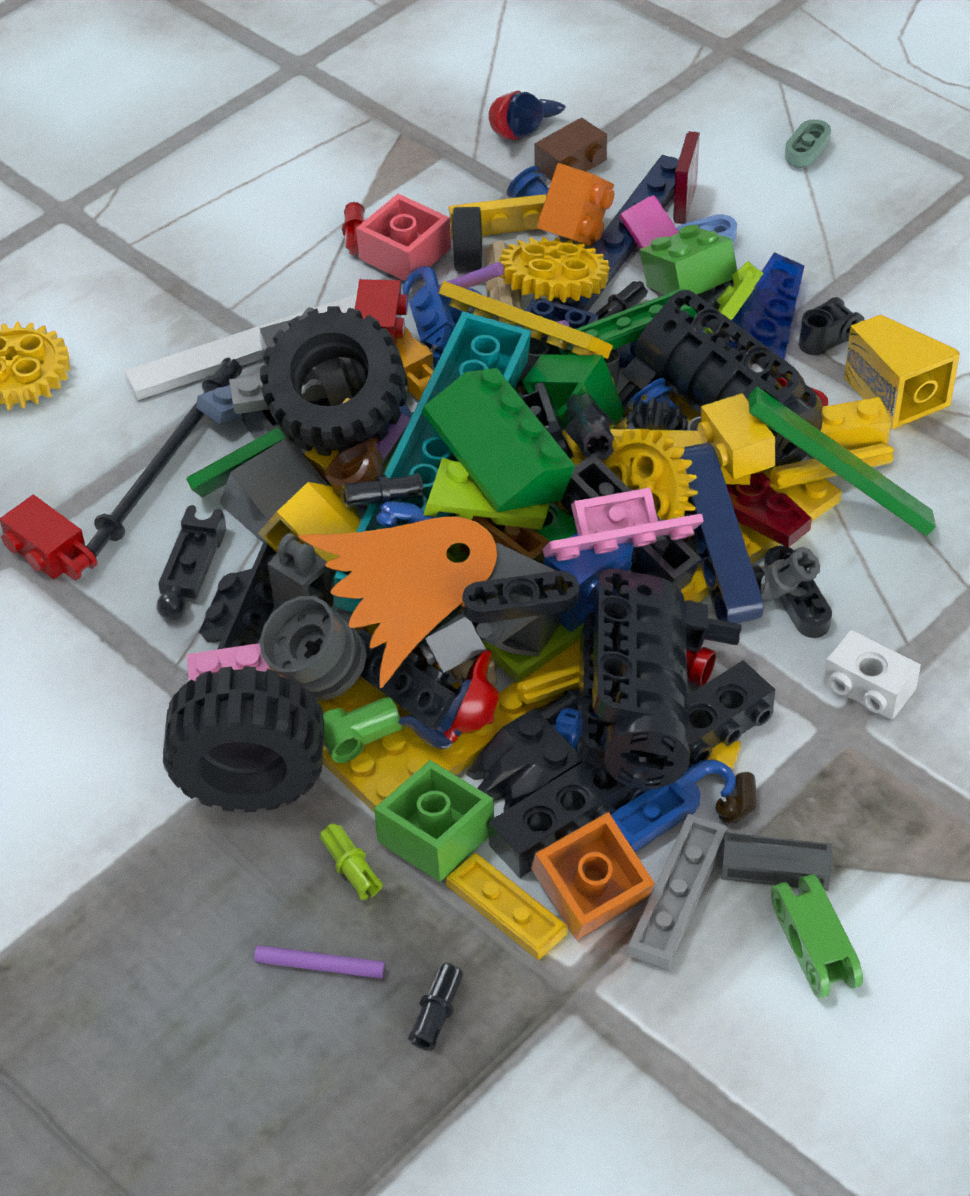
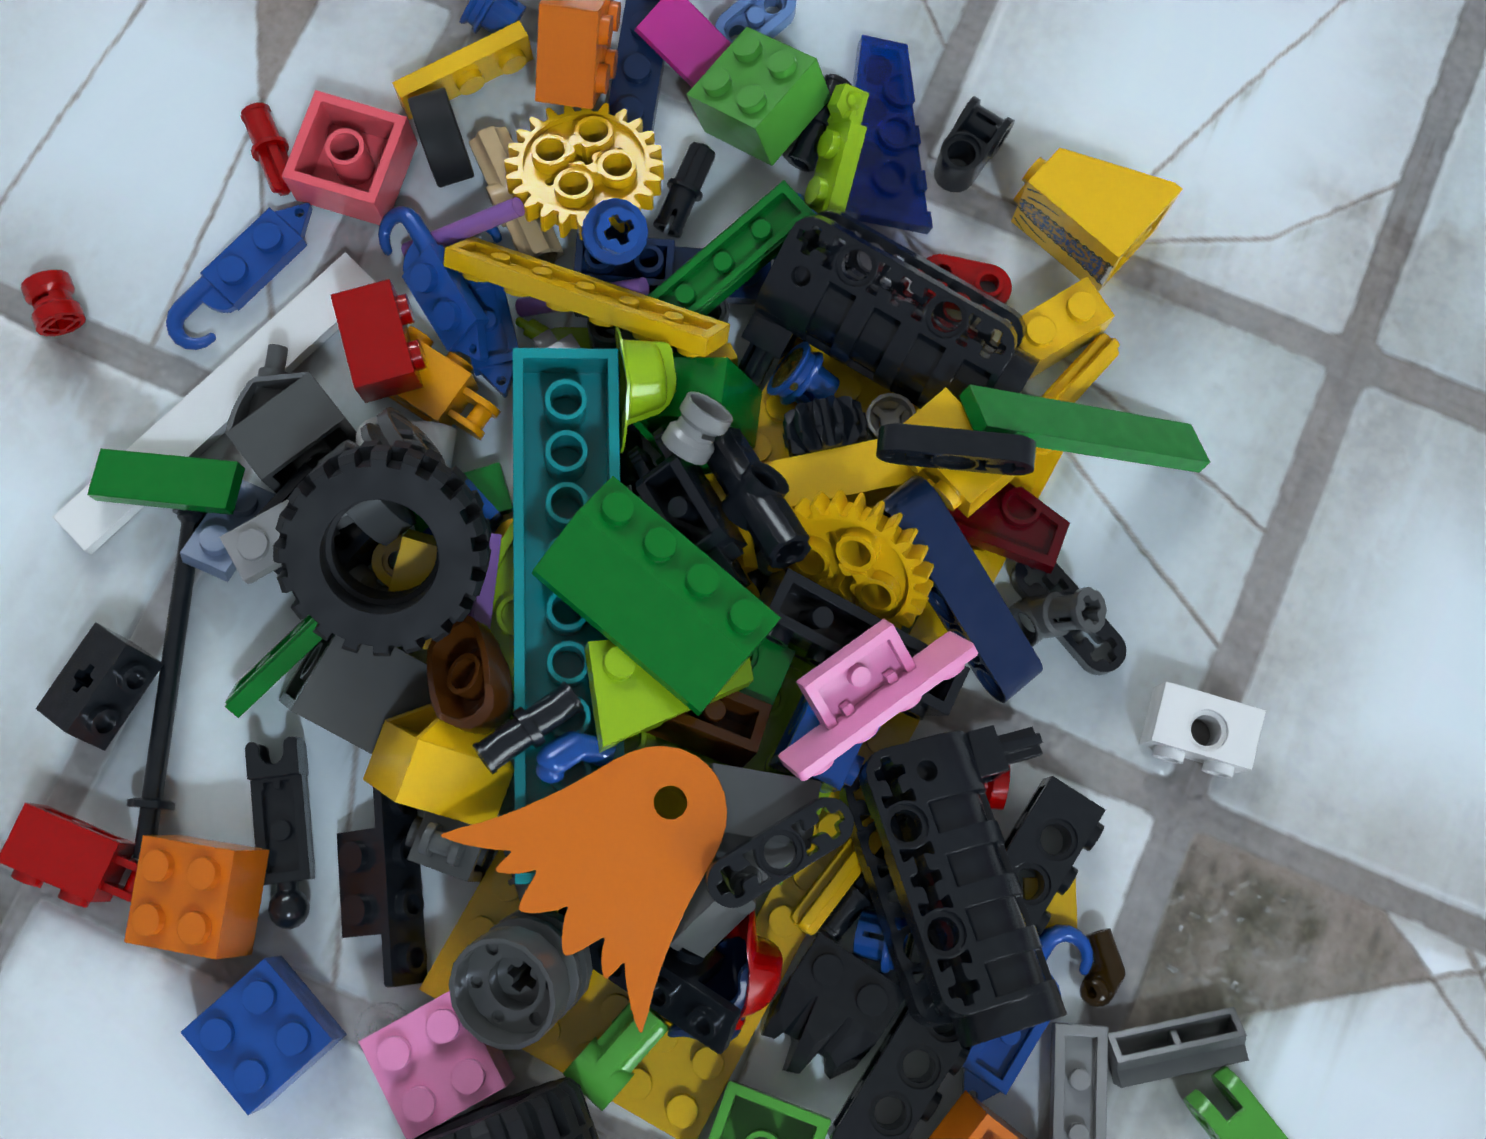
camera: 25 degrees left, 30 degrees up
(110, 453) = (99, 687): none -> black brick
(117, 571) = (196, 896): none -> orange brick
(122, 663) = (263, 1033): none -> blue brick
(180, 268) = (53, 302): none -> red wheel
(206, 361) = (166, 481): none -> green tile
(307, 283) = (241, 270): none -> blue plate
(540, 354) = (645, 380): none -> lime piece
(548, 293) = (610, 250): none -> blue piece
(562, 387) = (696, 428): none -> light grey wheel
(758, 418) = (956, 449): none -> black beam

